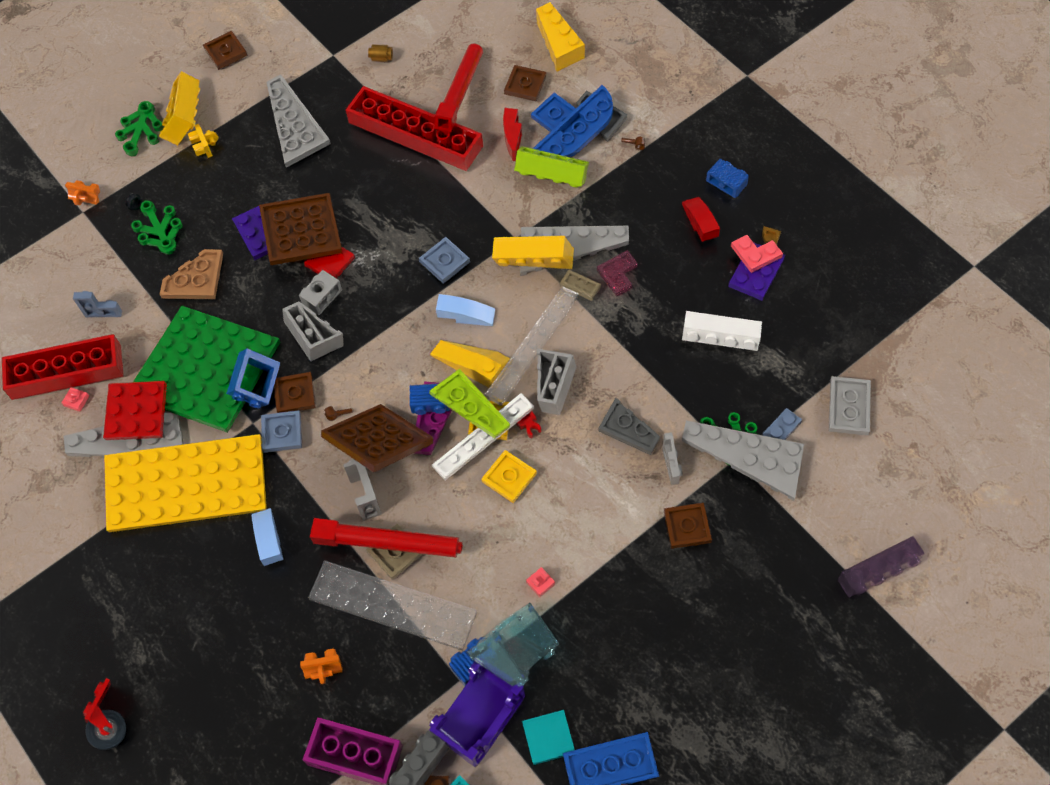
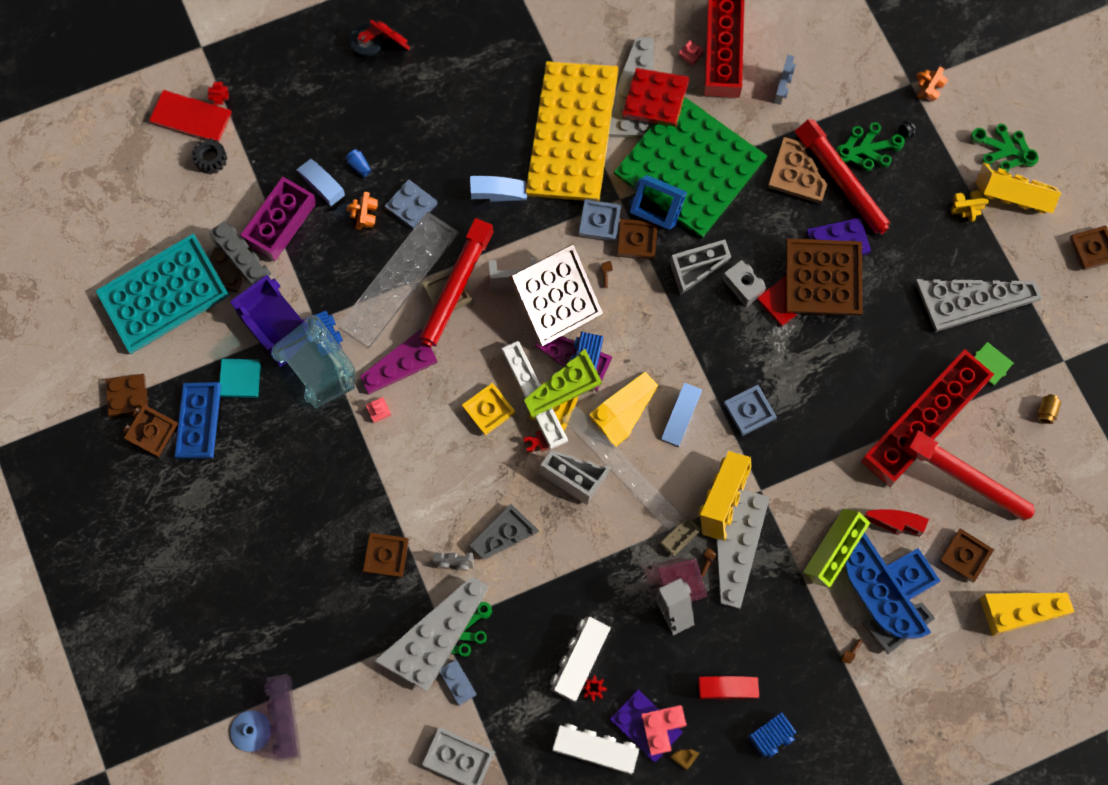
camera: 100 degrees right, 10 degrees up
(191, 239) = (815, 139): none -> red brick
(263, 691) = (358, 162): none -> blue cone
(295, 724) = (321, 182): none -> light blue slope
(302, 621) = (410, 204): none -> sand blue plate
(344, 99) = (994, 361): none -> bright green piece
(484, 576) = (400, 363): none -> magenta wing
(590, 258) = (710, 556): none -> reddish brown hand
(645, 266) = (676, 605): none -> light grey wedge
(743, 312) = (594, 682): none -> red gear
(795, 298) = (596, 750): none -> white brick
(899, 606) = (258, 738): none -> medium blue dish

